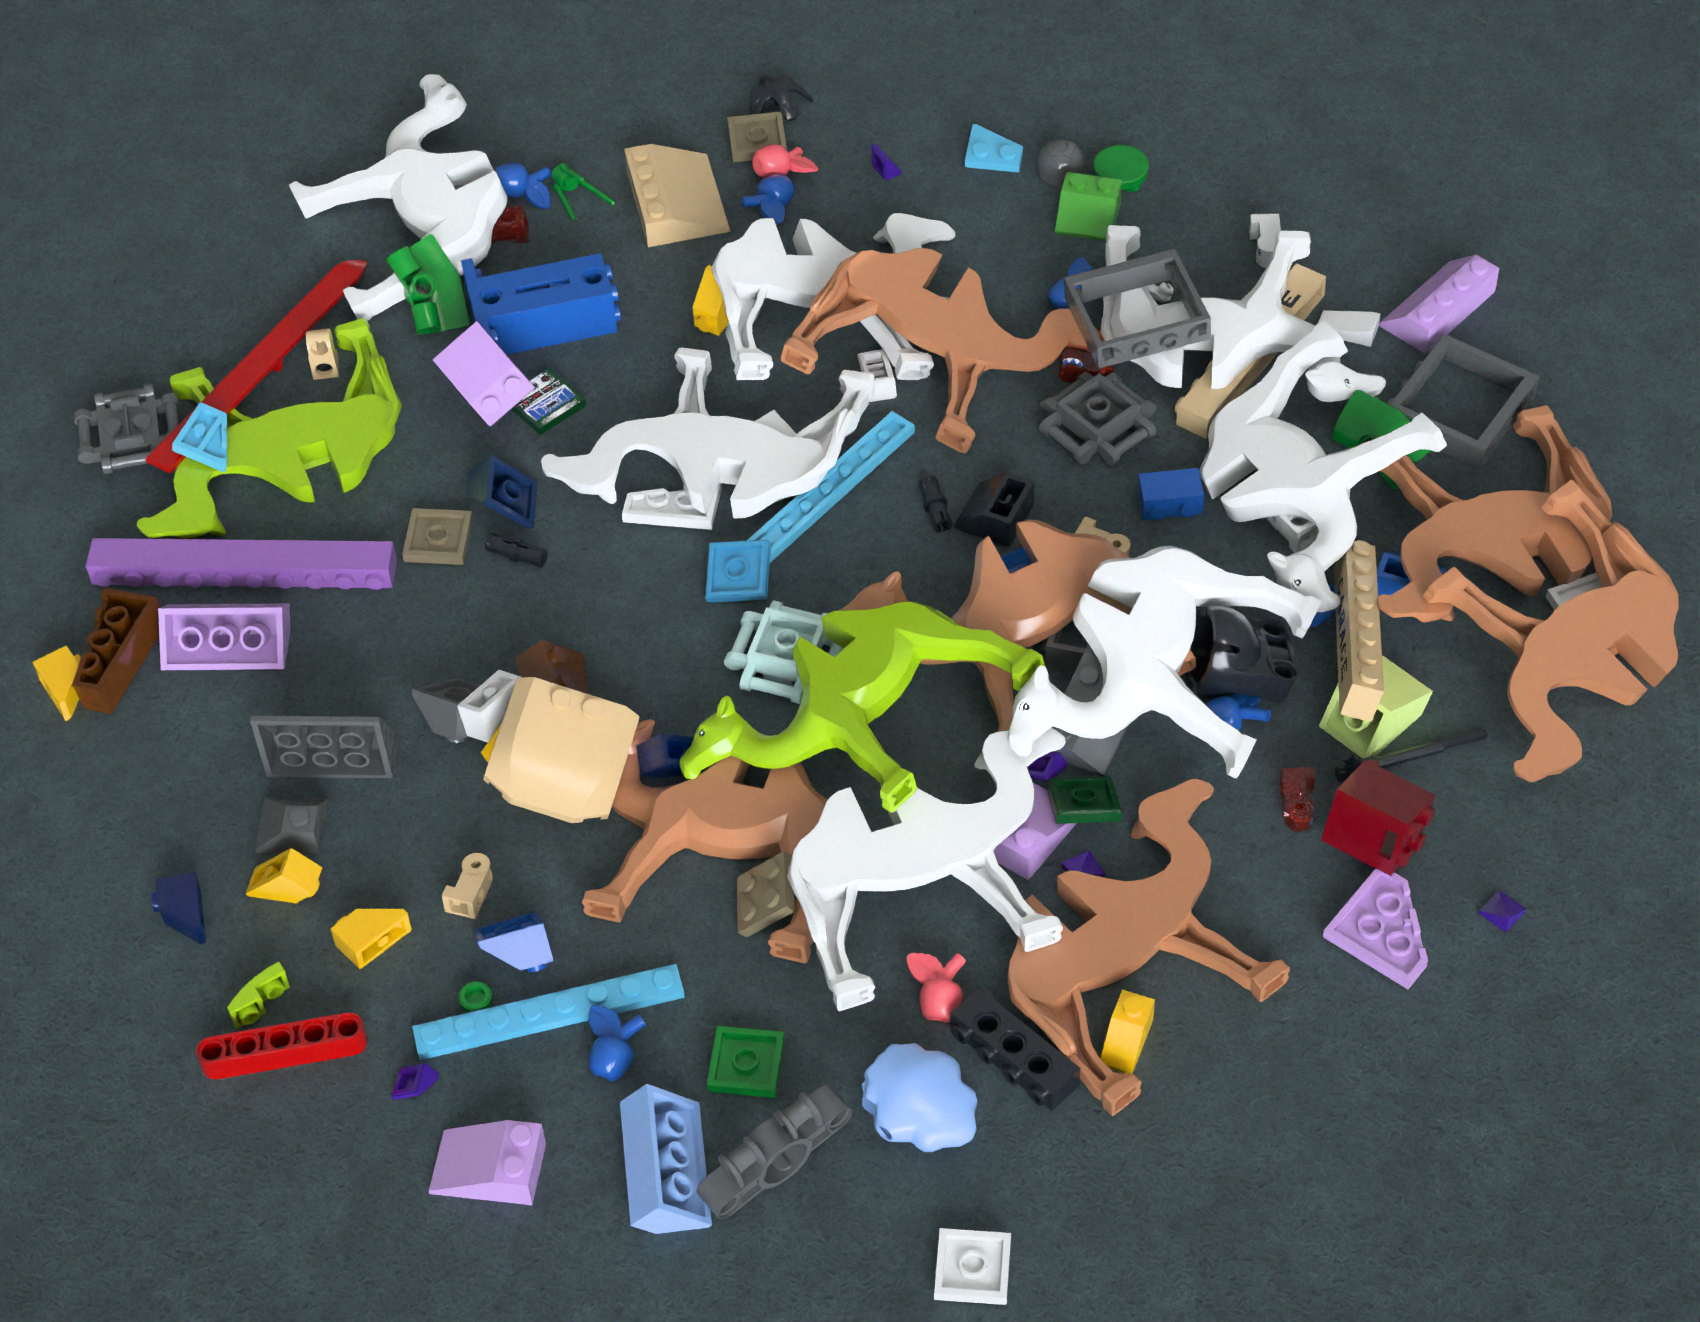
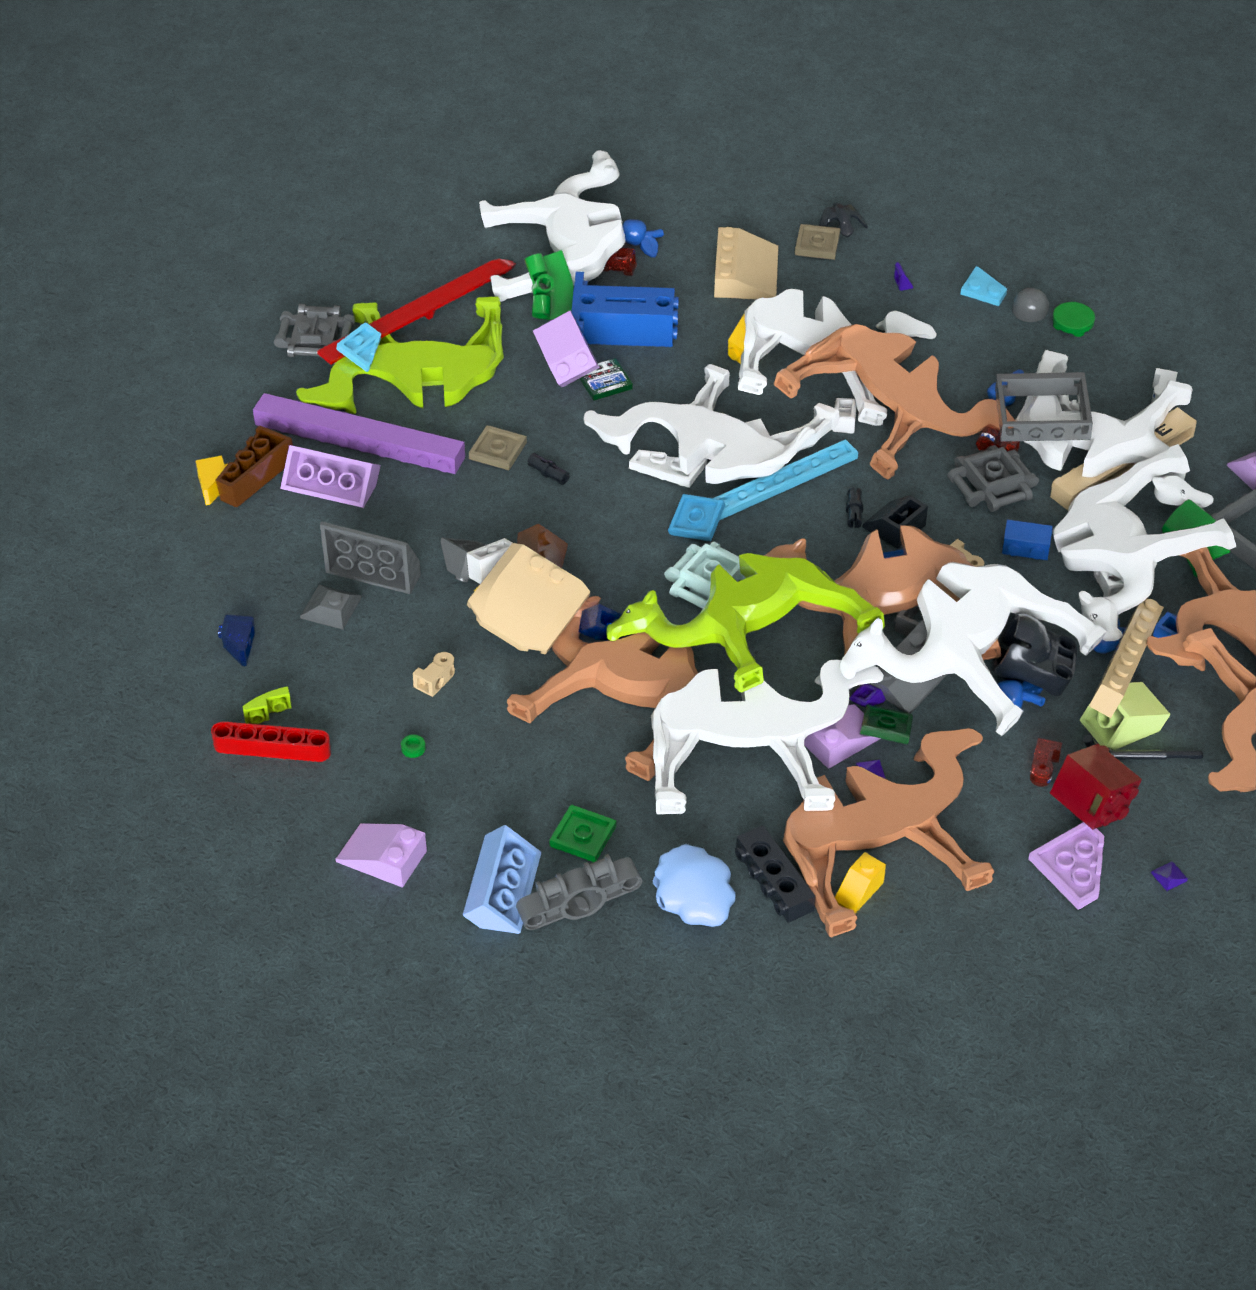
camera: 15 degrees right, 5 degrees down
(285, 878) = (313, 637): yellow slope -> none
(321, 351) = (462, 311): tan leg -> none
(369, 933) = (356, 685): yellow slope -> none
(413, 1081) = (351, 786): dark purple slope -> none
(504, 490) = (554, 428): dark blue slope -> none
(517, 942) = (454, 717): slope -> none
(546, 1011) = (459, 767): medium azure plate -> none
(568, 180) = (674, 241): green plant -> none
(610, 1052) = (491, 803): blue piece -> none
(764, 895) = (633, 729): dark tan plate -> none
(772, 196) = (813, 282): blue piece -> none
(777, 160) = (823, 260): coral piece -> none
(939, 993) = (736, 817): coral piece -> none
(972, 1266) = (691, 1006): white plate -> none
(1088, 206) = (1039, 334): bright green slope -> none
(1353, 325) = (1206, 460): white slope -> none

